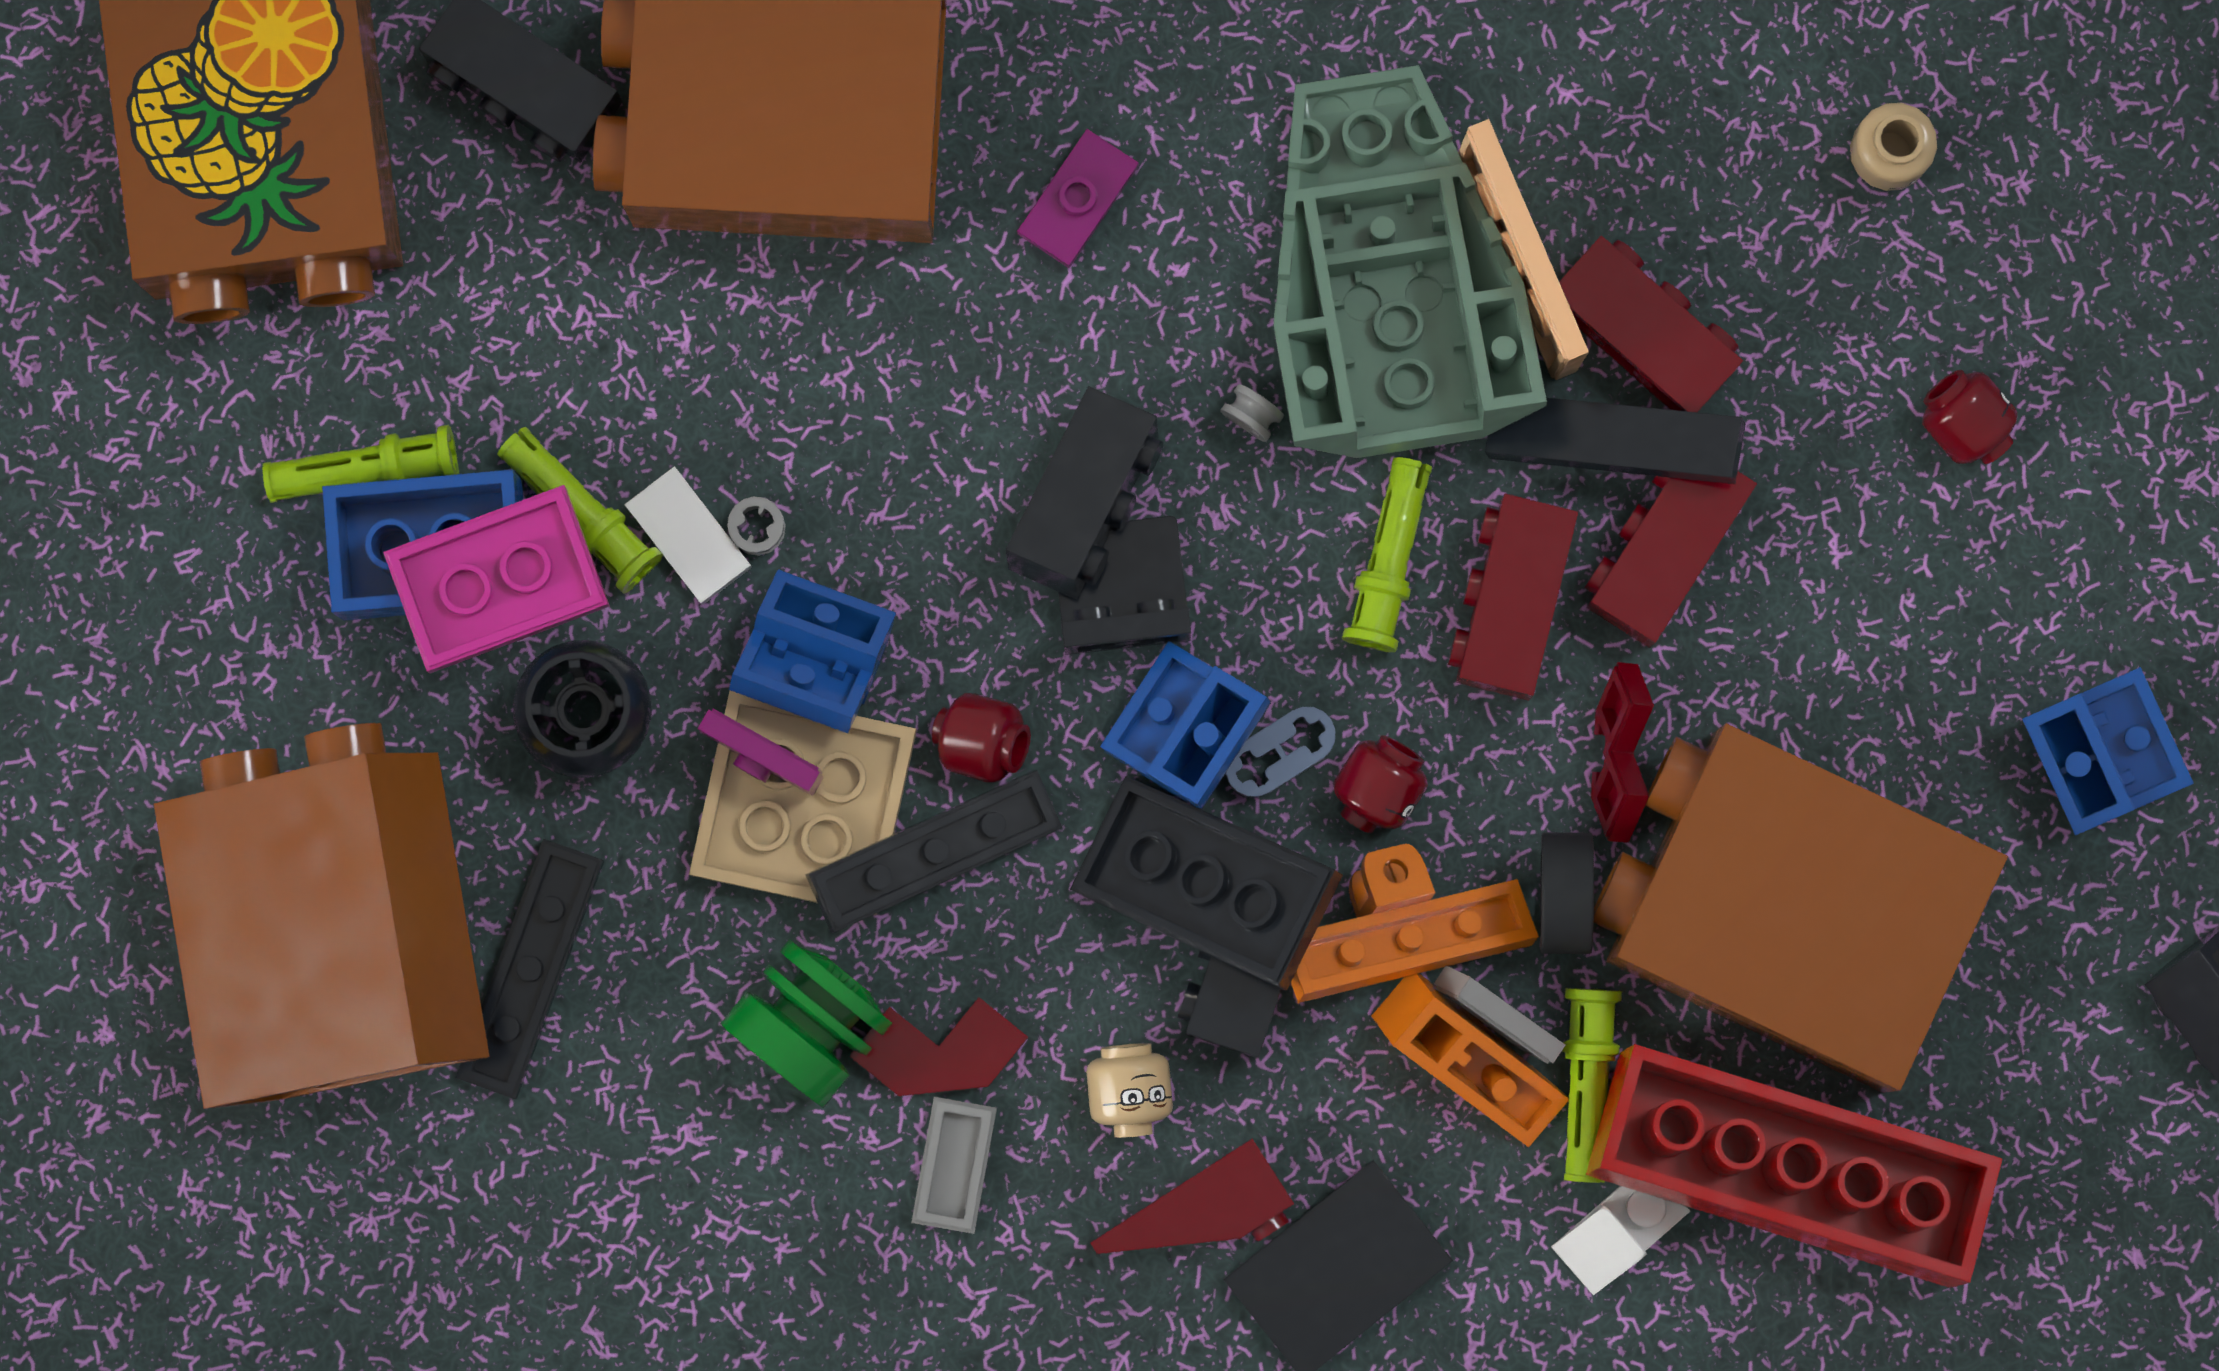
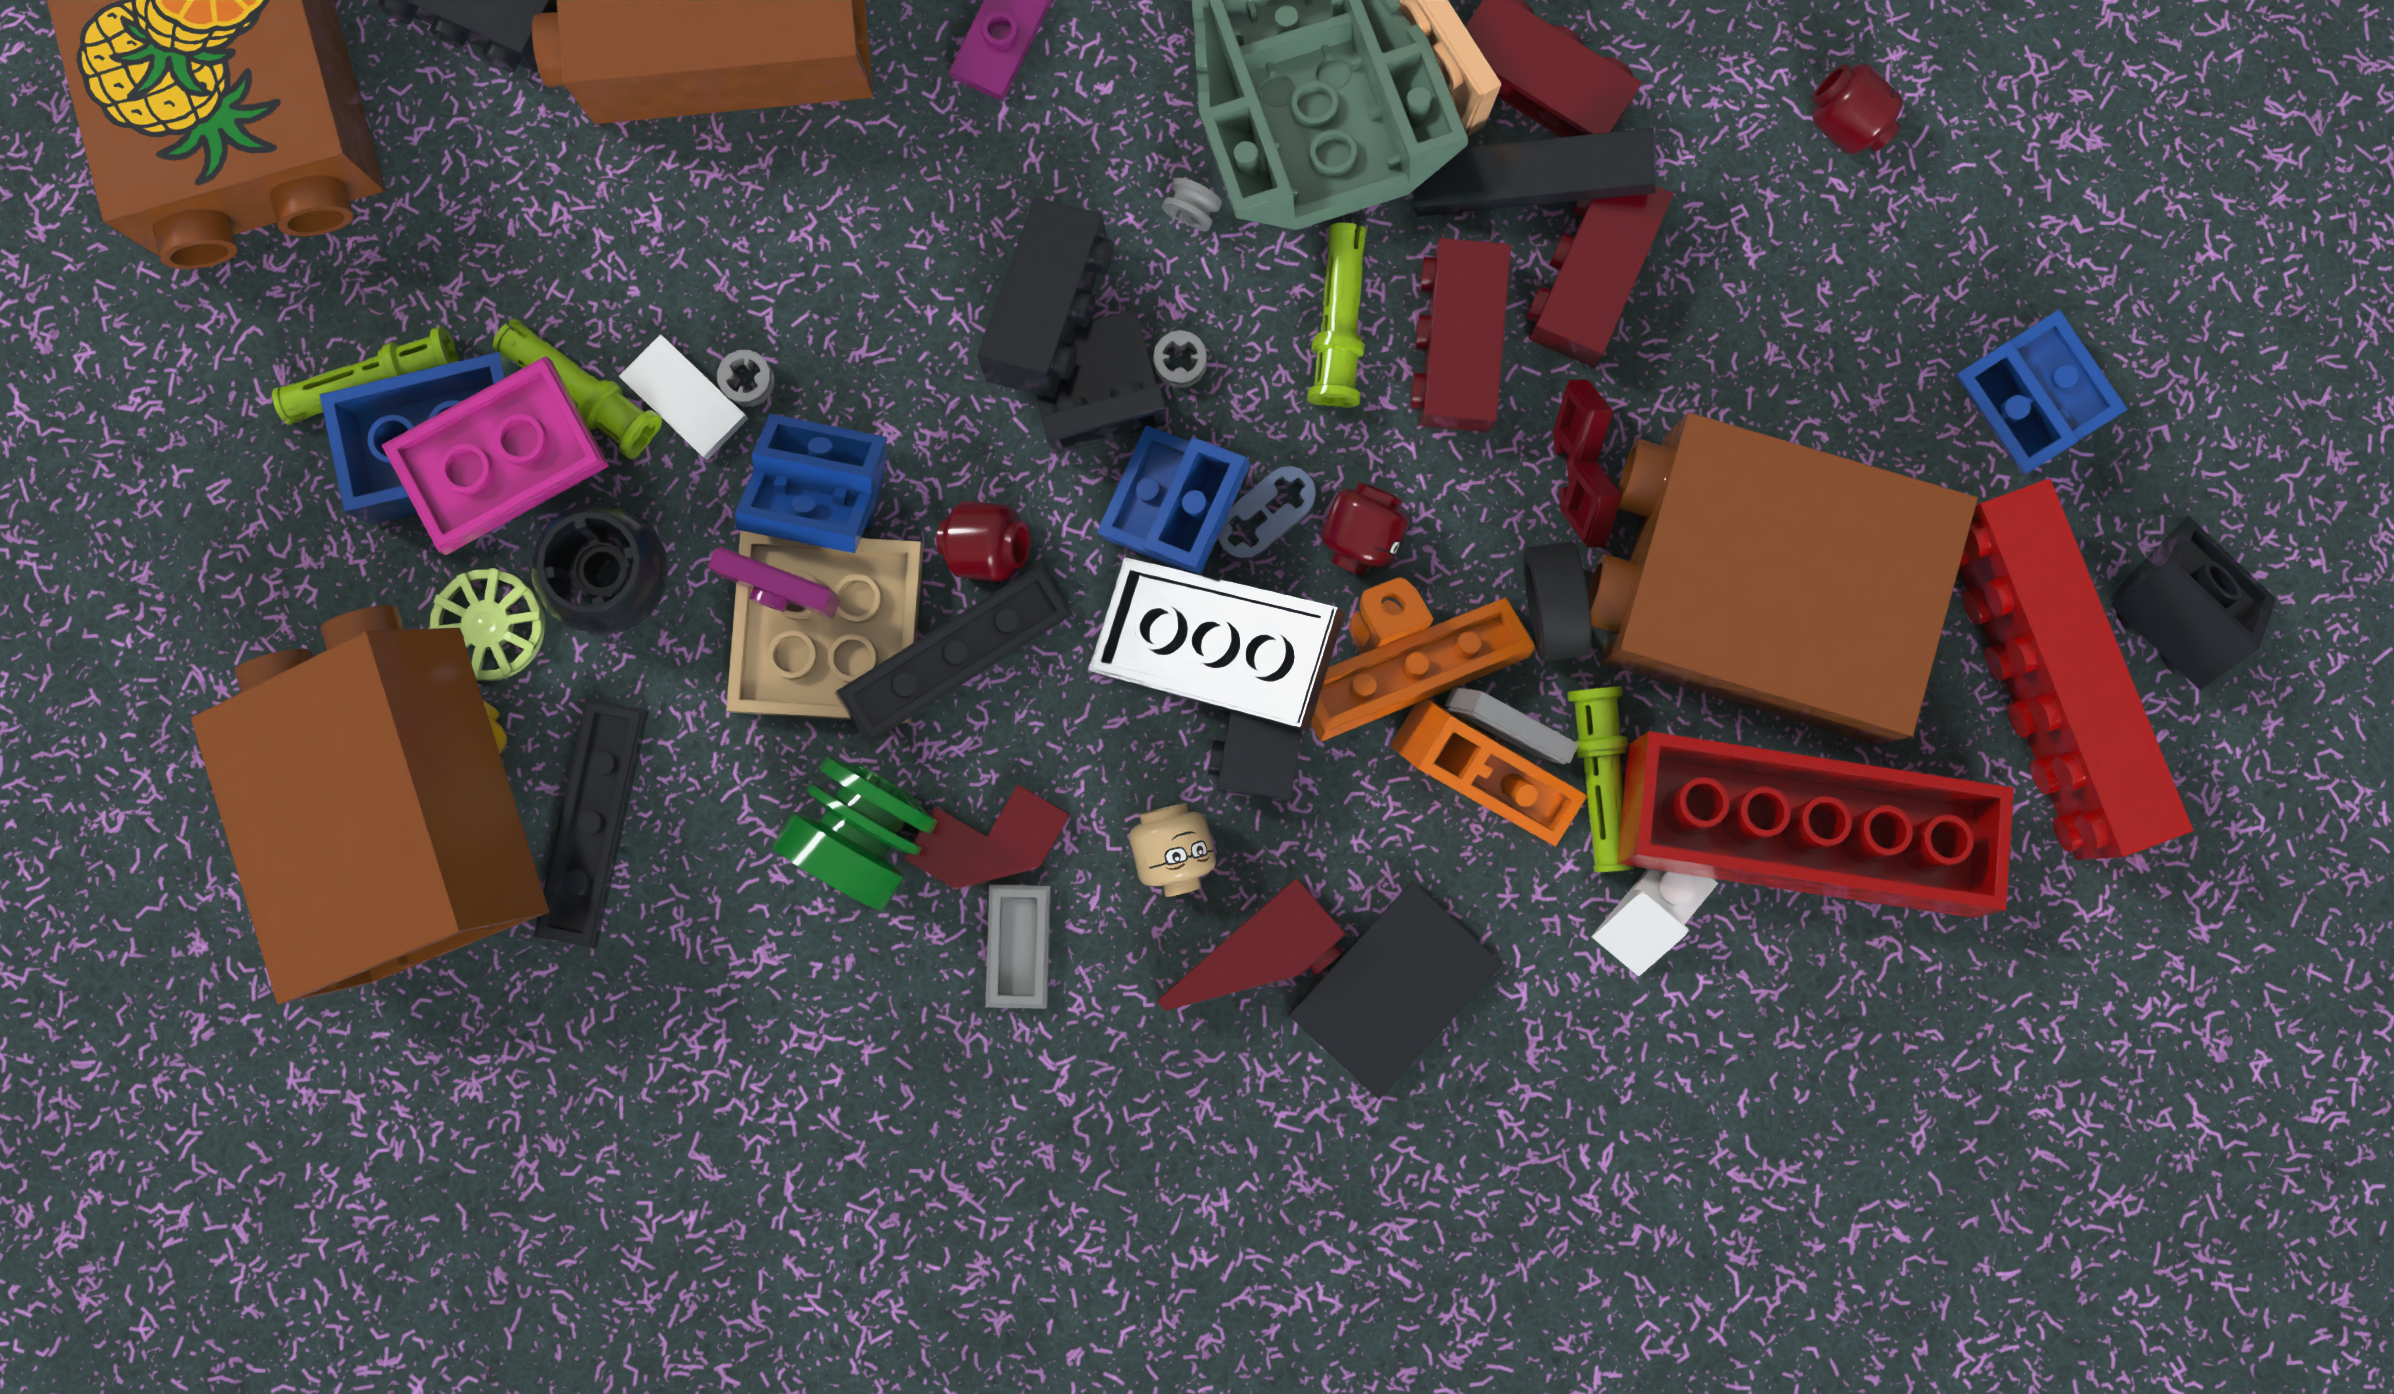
camera: 10 degrees left, 0 degrees up
(455, 740) = (491, 624): none -> yellowish green wheel
(1217, 555) = (1180, 341): none -> light grey bush
(2076, 1050) = (2066, 679): none -> red brick

